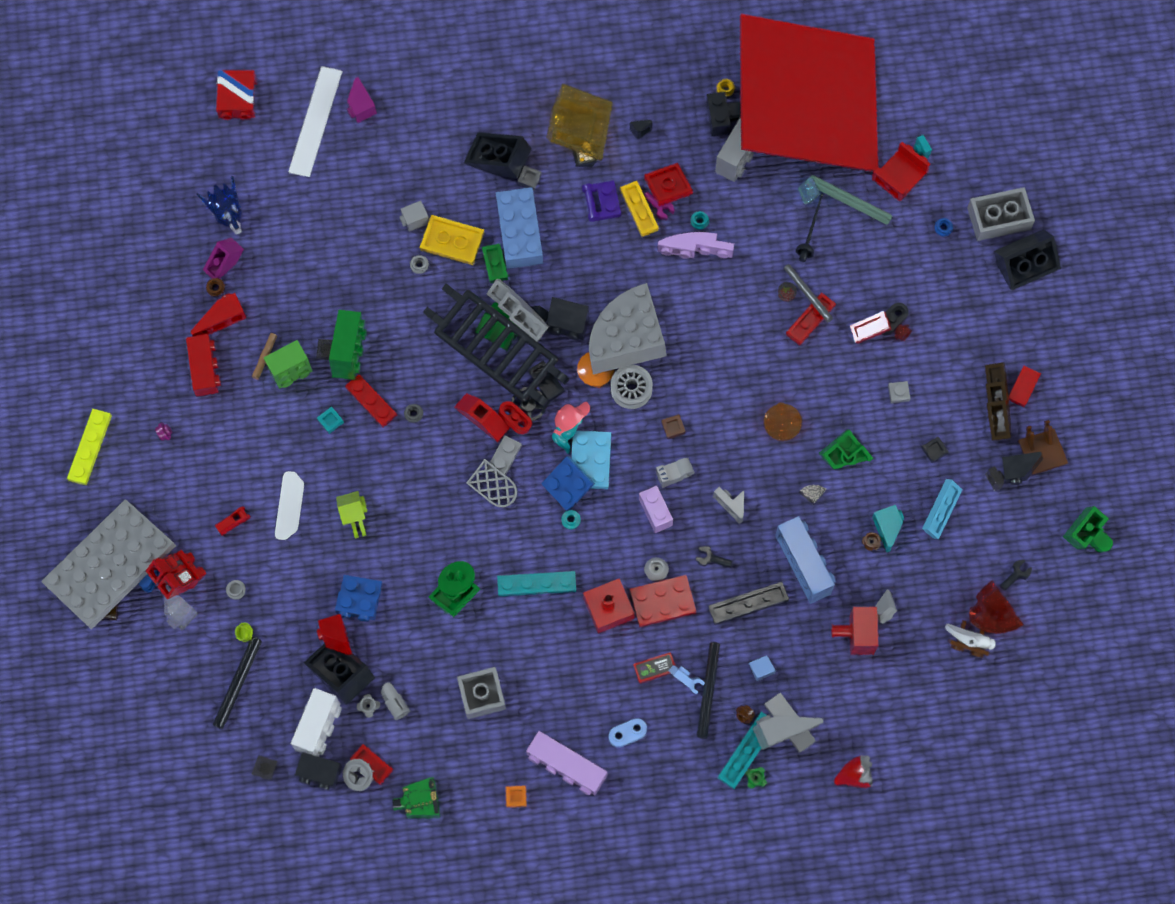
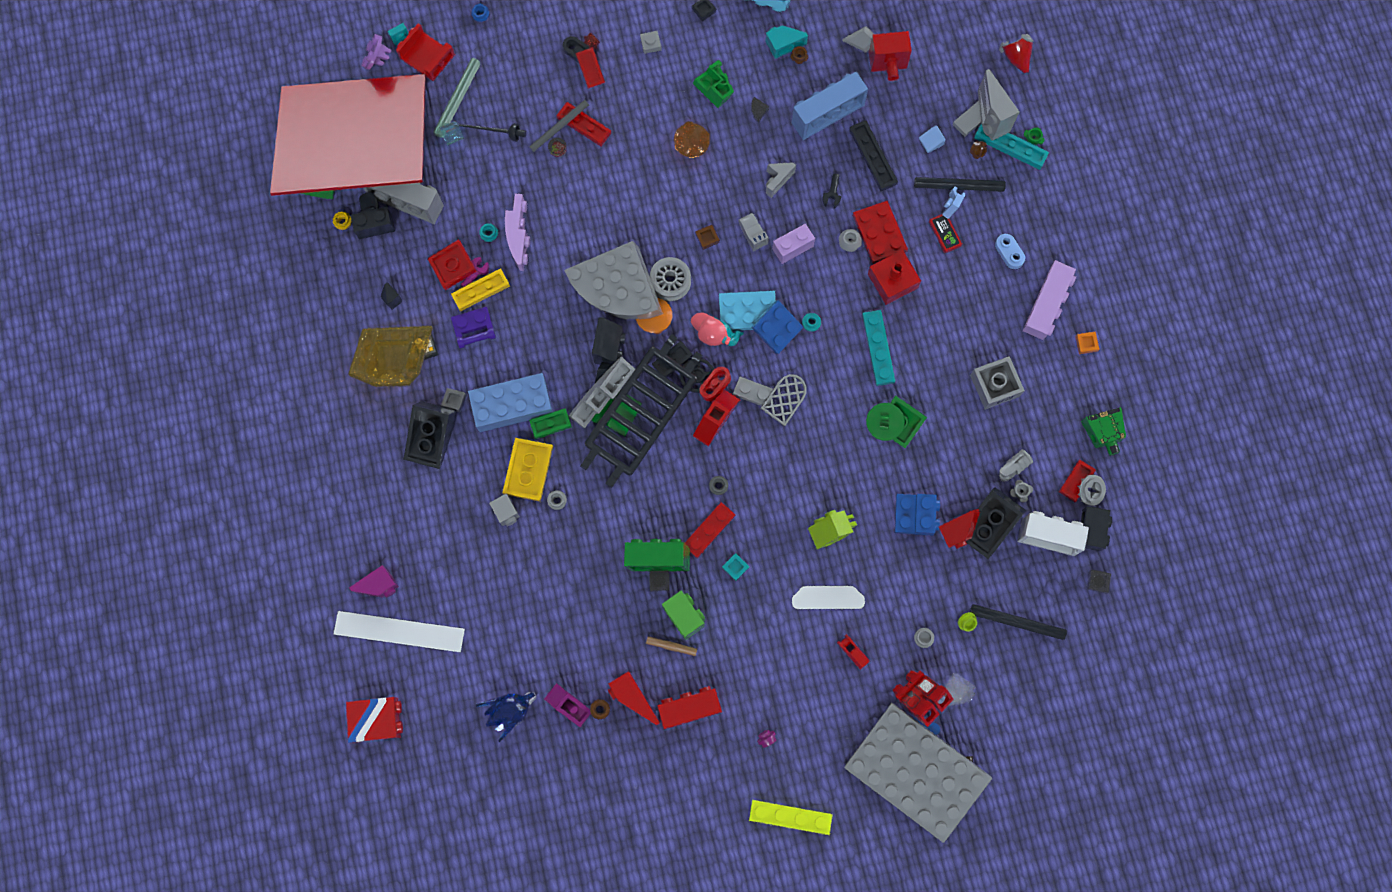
camera: 95 degrees left, 5 degrees up
(899, 123) = (376, 52): none -> medium lavender plate

